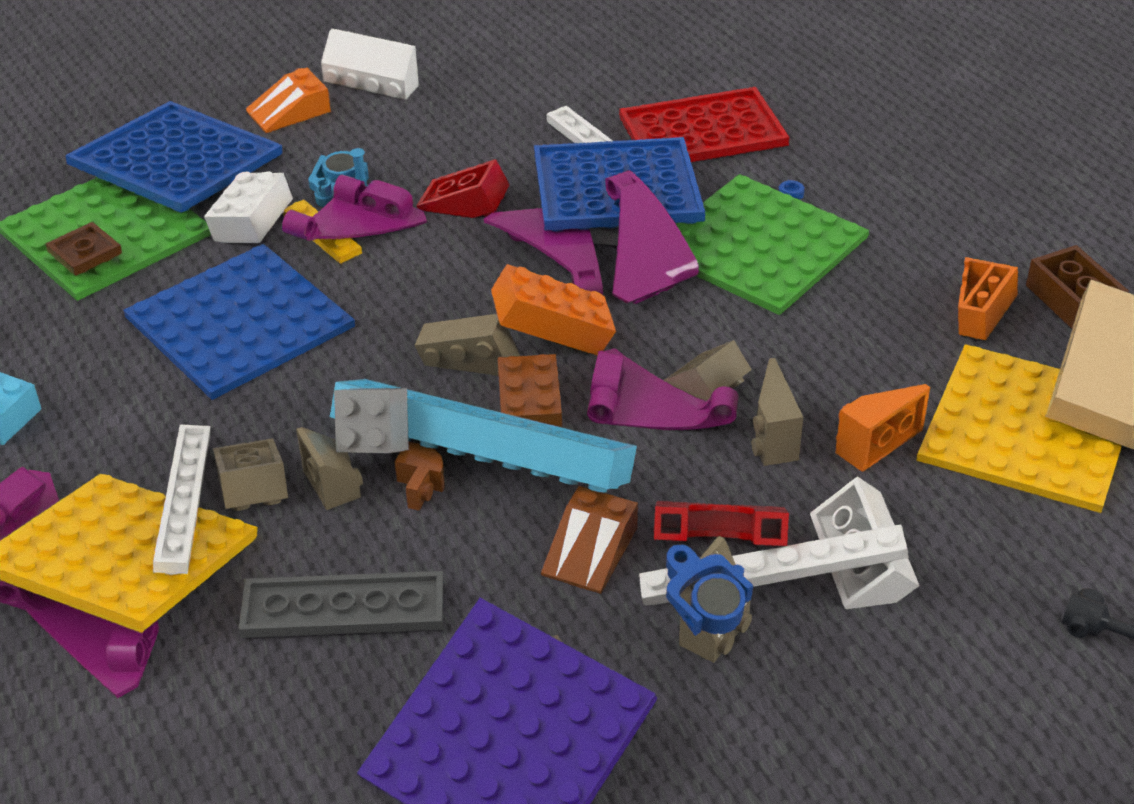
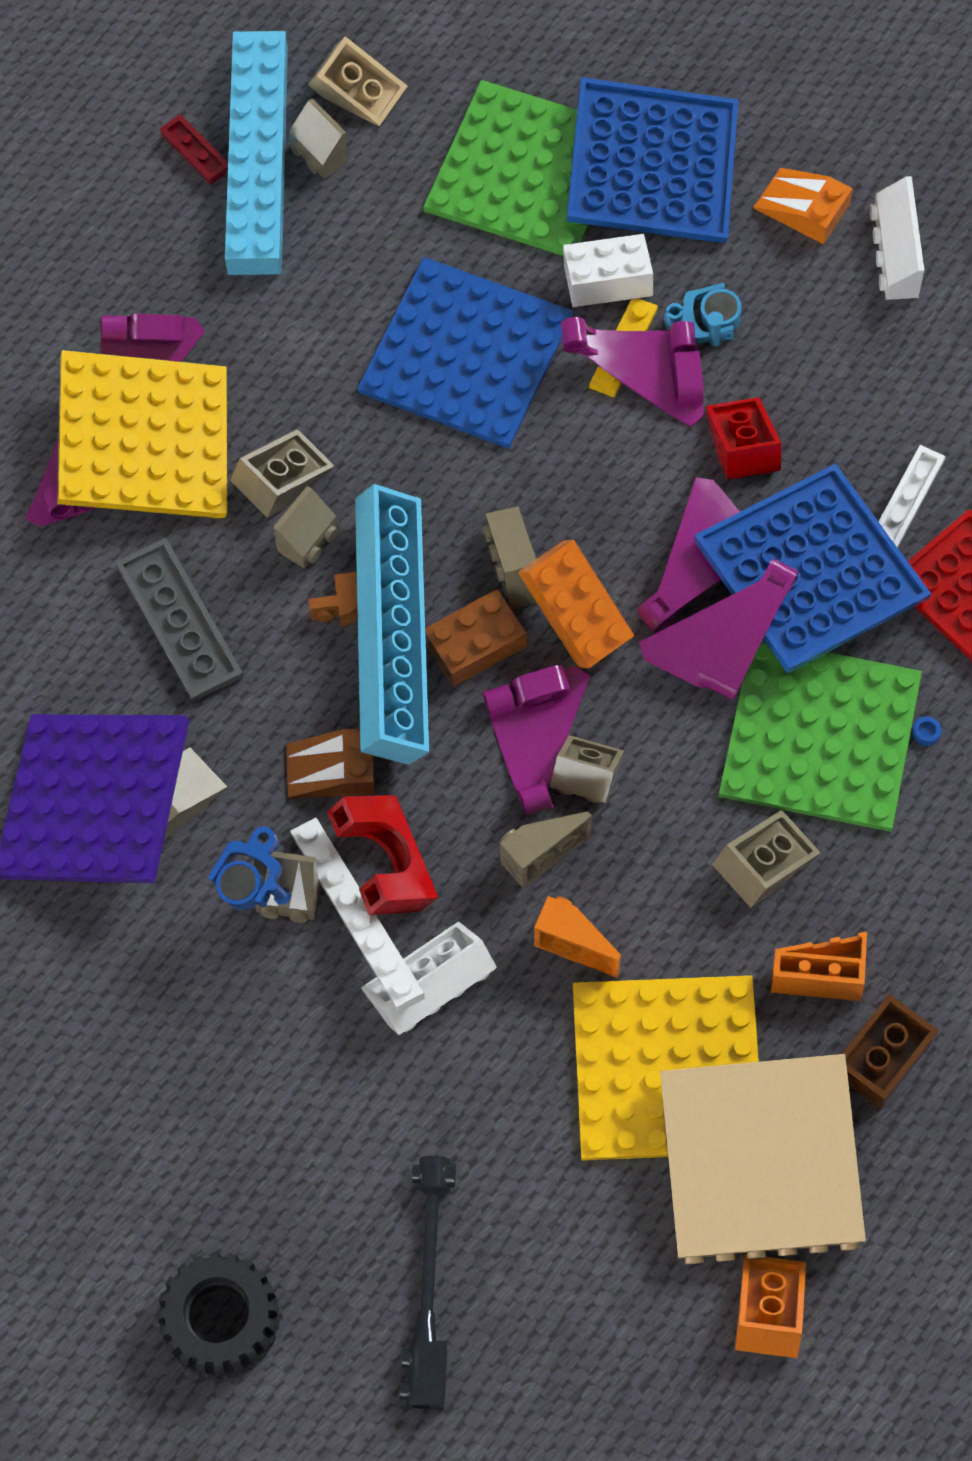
camera: 65 degrees right, 25 degrees up
(83, 248) = (470, 177): reddish brown plate -> none
(182, 501) = (212, 445): white plate -> none
(371, 420) = (347, 535): light grey brick -> none
(861, 303) = (765, 858): none -> dark tan slope

